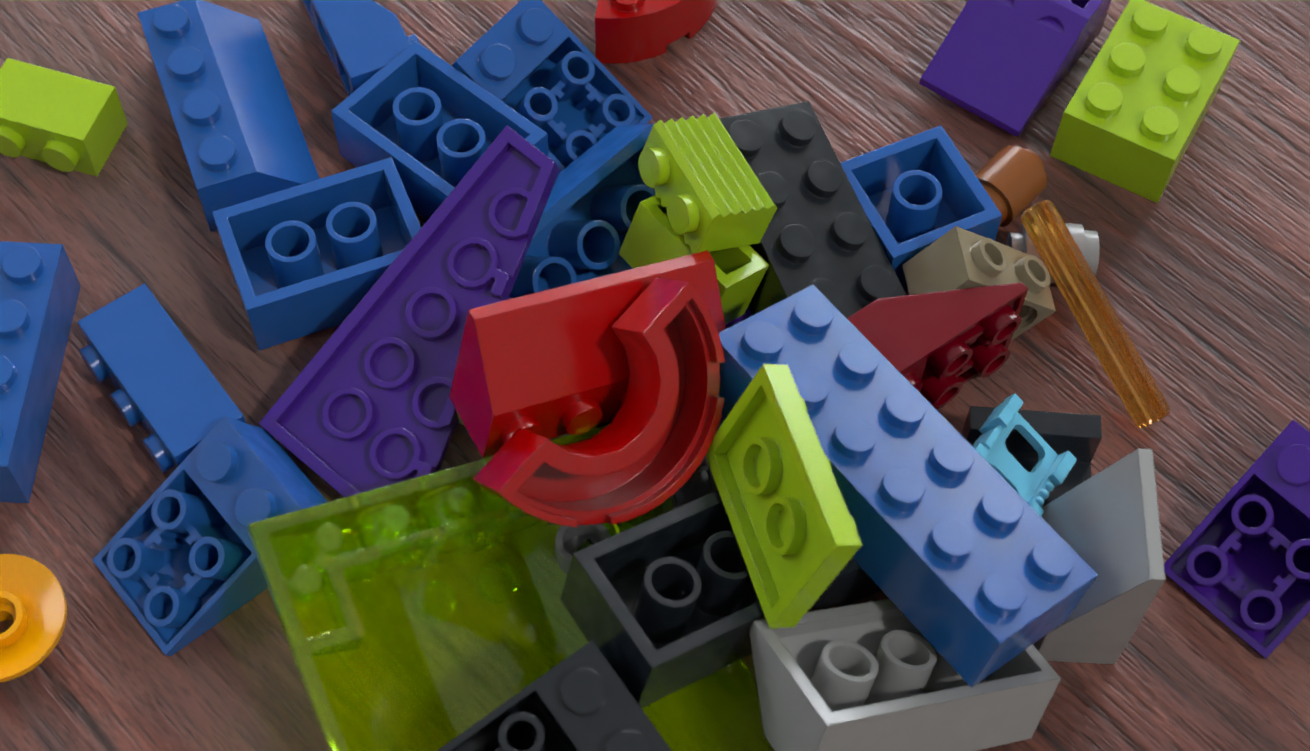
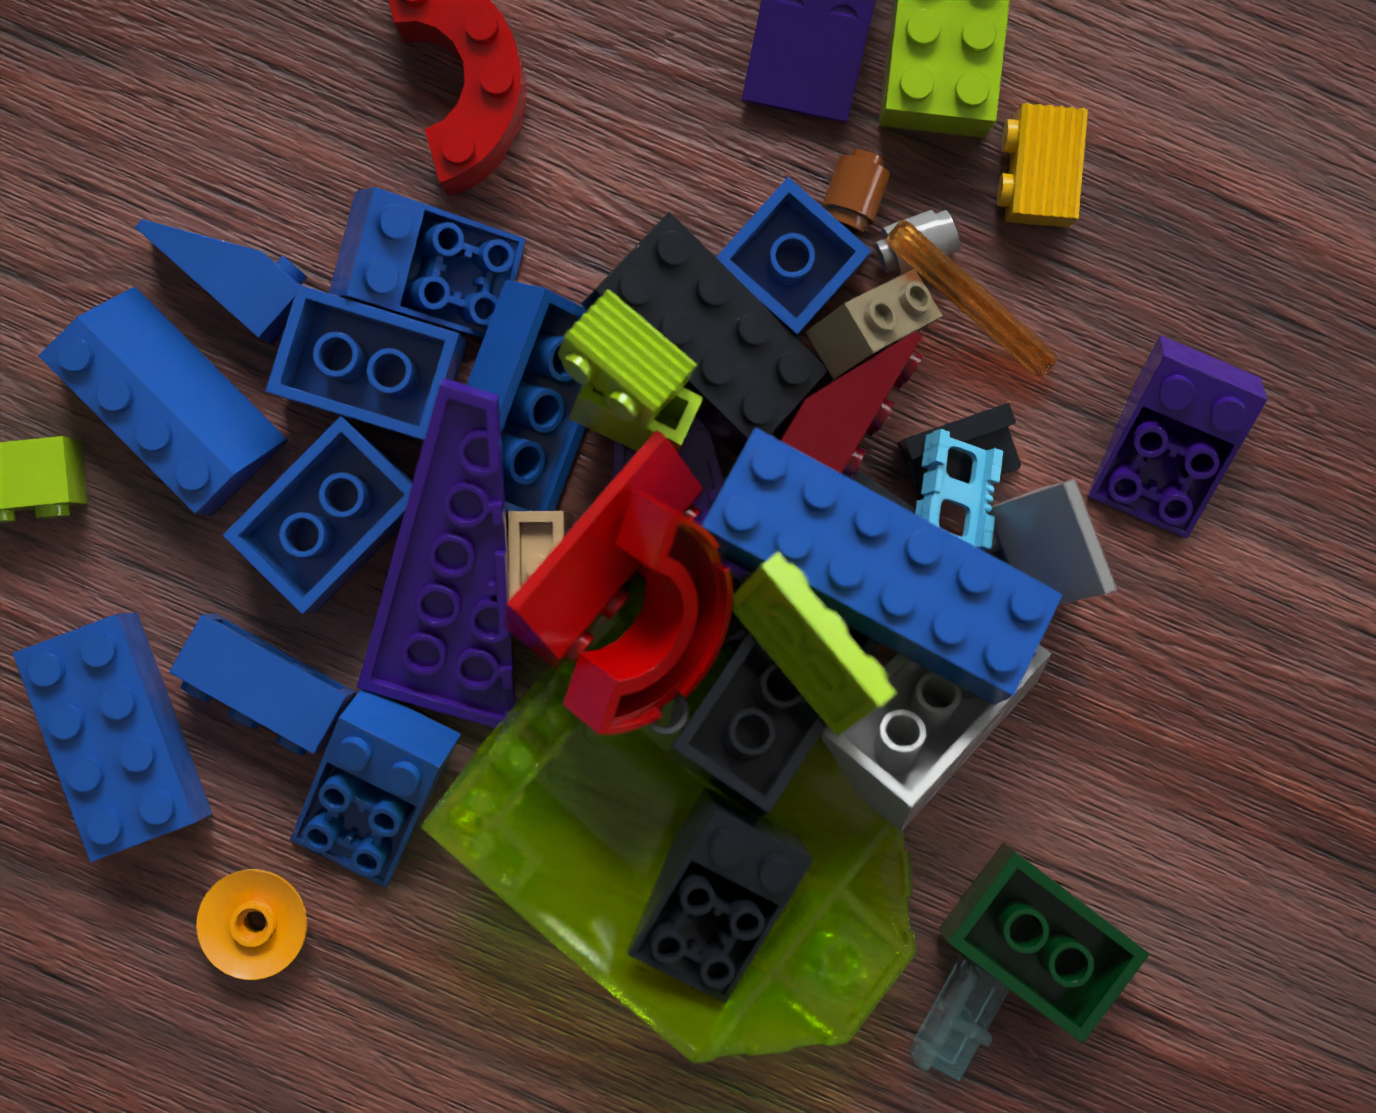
camera: 25 degrees left, 30 degrees up
(1213, 234) = (1044, 165): none -> yellow brick

